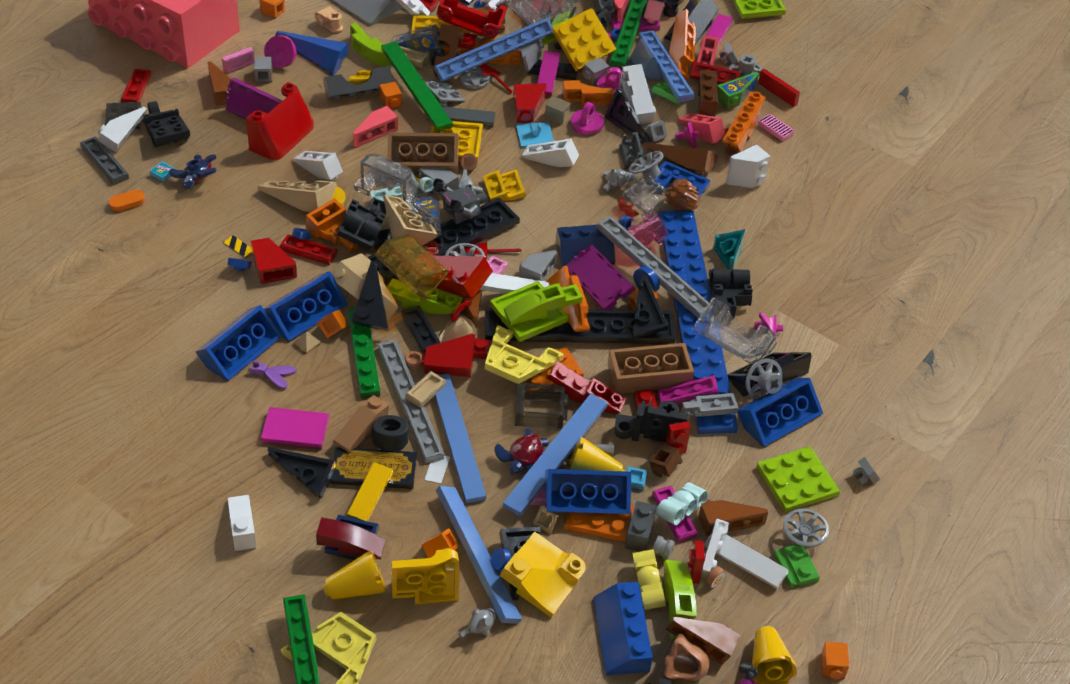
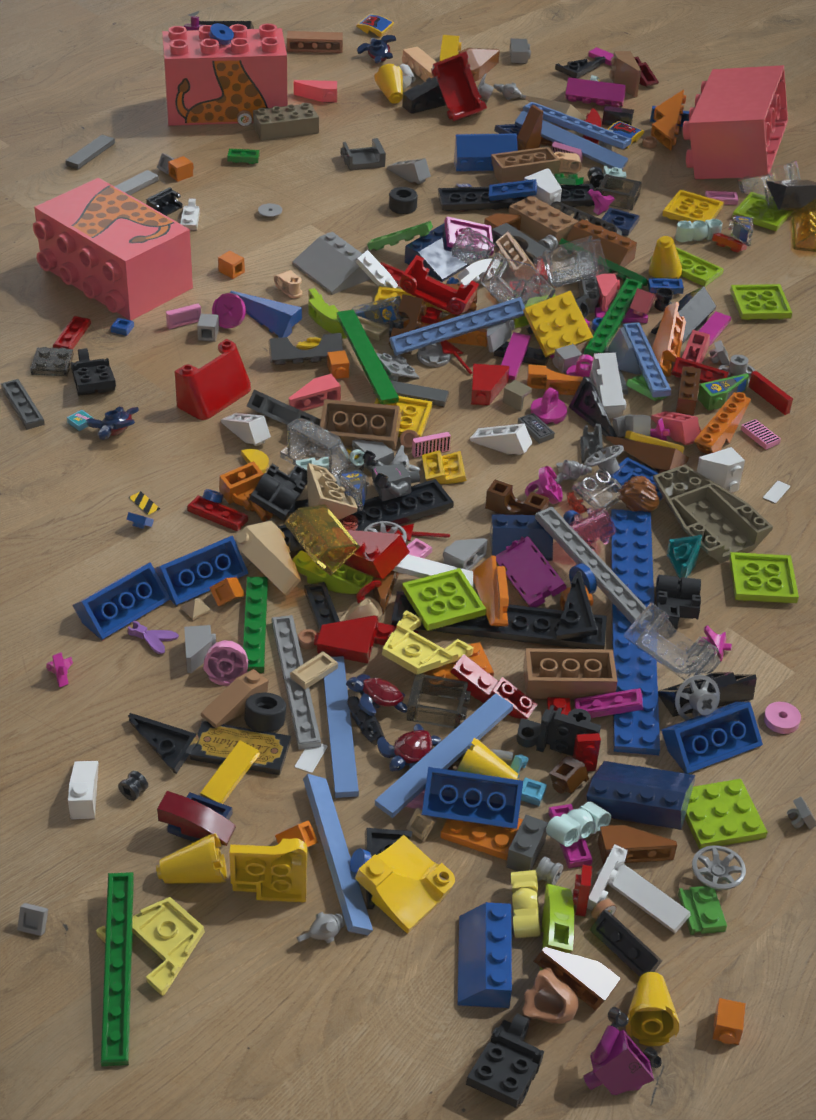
camera: 10 degrees right, 5 degrees down
(120, 128) = (44, 373): white slope -> none
(127, 200) = (36, 445): orange tile -> none
(181, 75) = (122, 326): none -> blue tile
(196, 412) = (59, 667): none -> dark pink piece
(219, 83) = (160, 340): dark orange slope -> none
(222, 647) = (32, 919): none -> light grey tile
(245, 99) = (180, 351): magenta piece -> none
(271, 261) = (175, 521): red slope -> none
(286, 514) = (133, 785): none -> black wheel
(295, 428) = (163, 696): dark pink tile -> none
(299, 194) = (220, 455): tan wedge -> none
(317, 377) = (197, 643): none -> light grey slope
(346, 391) = (225, 662): none -> bright pink cylinder
(347, 145) = (278, 410): none -> dark grey arch
(370, 305) = (269, 577): black wing -> none
(479, 430) = (366, 723): none -> black hinge
(486, 405) = (376, 693): none -> animal
(489, 164) = (431, 444): none -> bright pink tile
(534, 133) = (487, 416): medium azure piece -> none
(542, 300) = (452, 589): lime slope -> none
(563, 213) = (502, 501): none -> reddish brown arch
(580, 140) = (536, 428): none -> tile
(600, 196) = (546, 485): none -> dark pink tile
(620, 453) = (518, 762): none -> medium azure tile
(669, 132) = (638, 423): none -> light grey brick
(684, 143) = (647, 439): none -> yellow tile
(711, 405) = (631, 720): light grey hinge -> none
(730, 469) = (642, 794): none -> dark blue slope
(738, 604) = (625, 944): none -> black plate
(747, 206) = (710, 510): none -> dark tan wedge
(798, 180) = (776, 491): none -> white sticker
(800, 261) = (763, 577): none -> lime plate
(829, 384) = (782, 717): none -> bright pink piece

